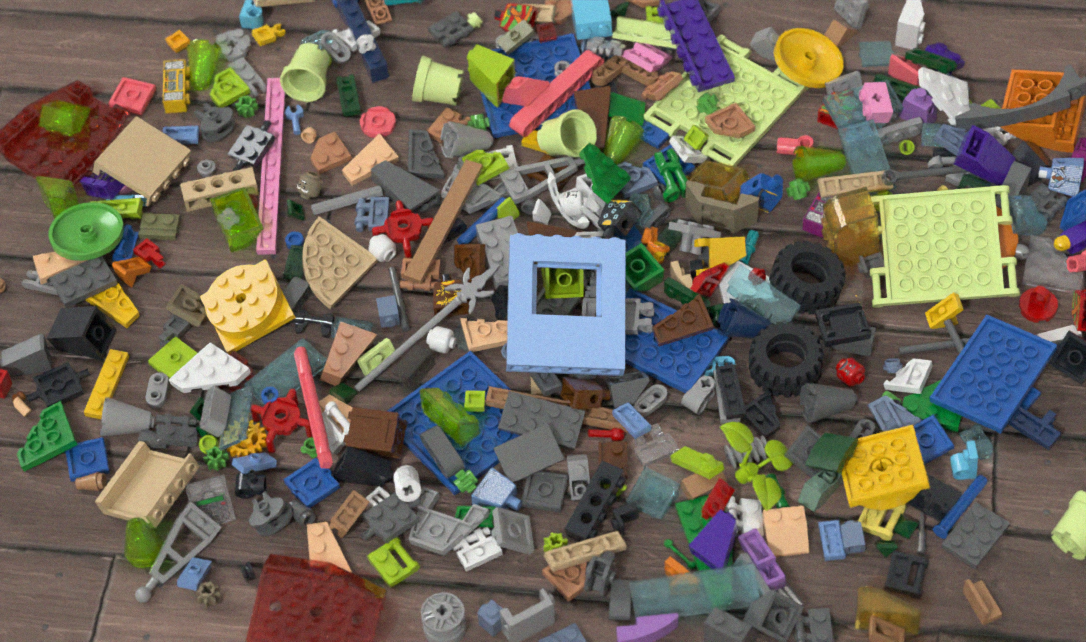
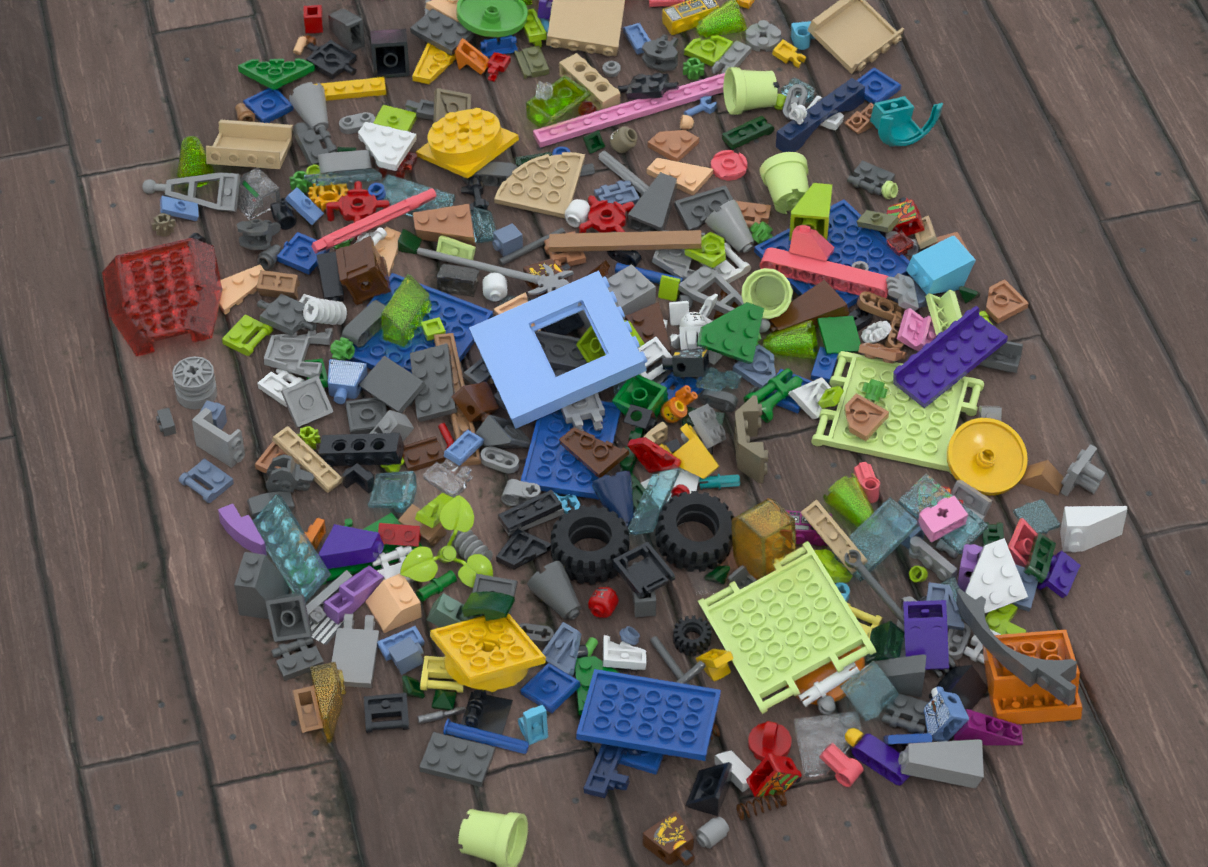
camera: 65 degrees right, 5 degrees down
(639, 80) = (876, 332): none -> white gear
(669, 275) = (647, 421): none -> black bracket
(720, 180) = (786, 434): clear yellow slope -> none
(766, 188) = (784, 467): blue torso -> none
(797, 189) = (810, 495): bright green gear -> none
(826, 580) = (356, 652): none -> light grey tile
(851, 281) = (718, 574): none -> dark green slope
(909, 312) = (692, 645): none -> black tyre
(981, 601) = (379, 781): medium nougat panel -> none
(983, 444) = (564, 737): clear light blue plate -> none
(1011, 246) = (829, 683): none -> white pin

